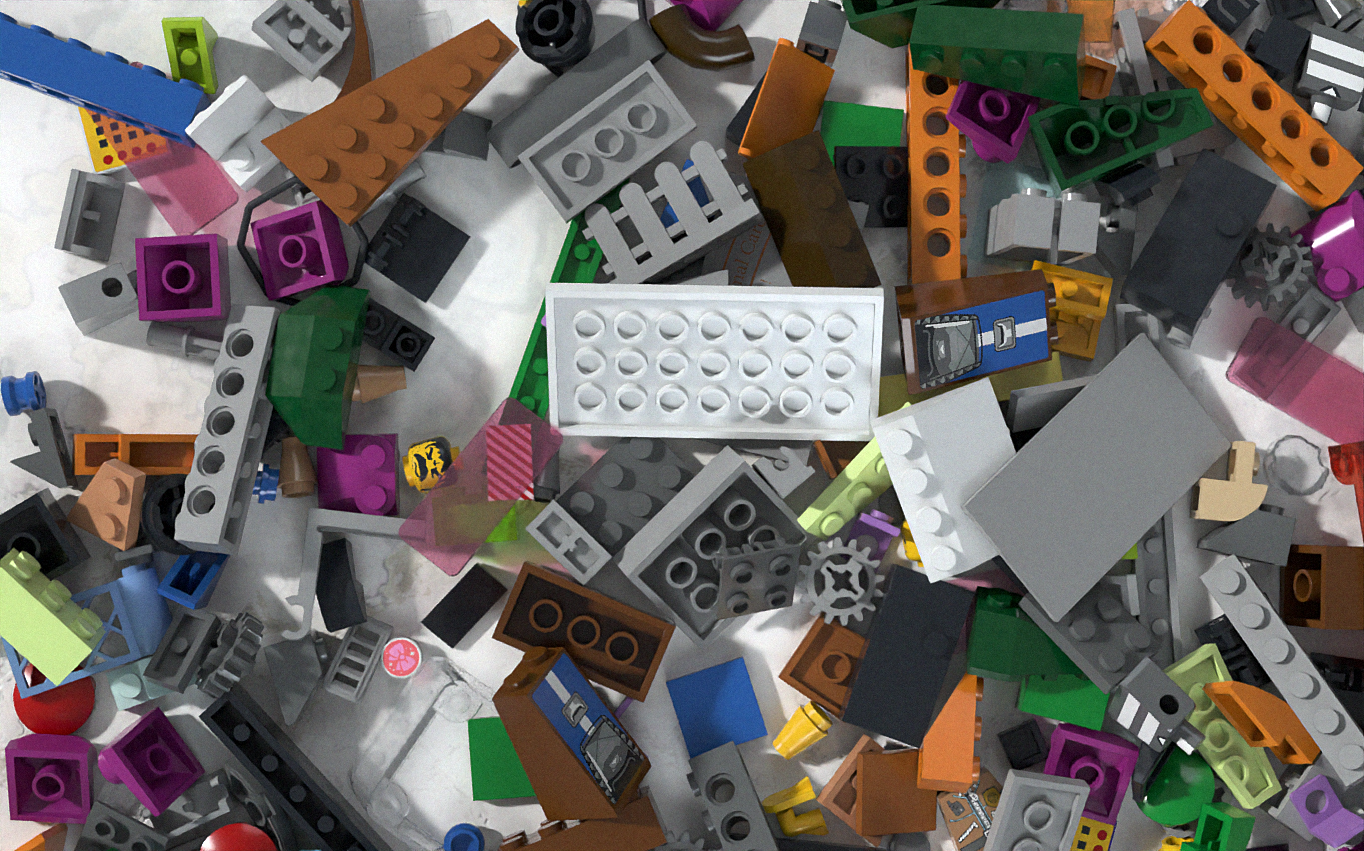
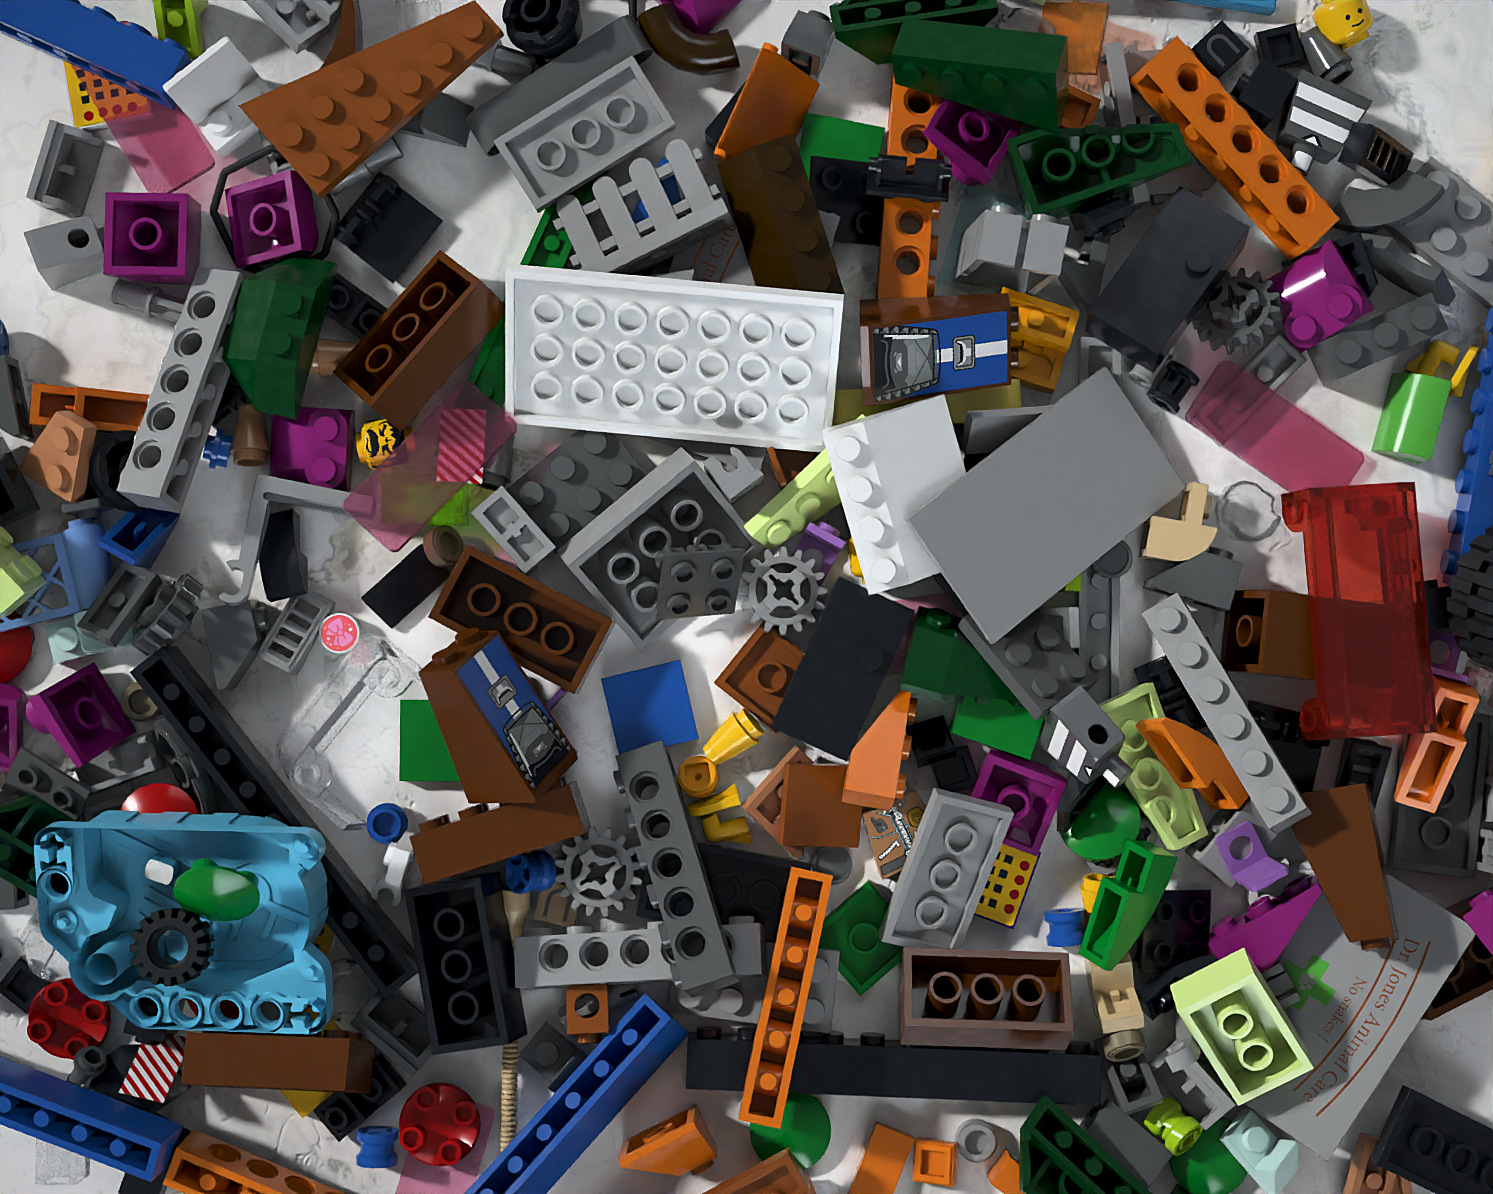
camera: 15 degrees right, 0 degrees up
(205, 744) = (138, 705): none -> dark tan tile
(460, 361) = (420, 340): none -> reddish brown brick
(498, 562) = (443, 545): none -> dark tan tile
(525, 72) = (508, 60): none -> light grey axle
(770, 773) = (698, 777): none -> light orange tile
(915, 163) = (890, 179): none -> black hinge
(1000, 718) = (931, 741): none -> black tile
(1169, 526) = (1115, 561): none -> dark grey piece
(1211, 346) = (1173, 387): none -> black bush

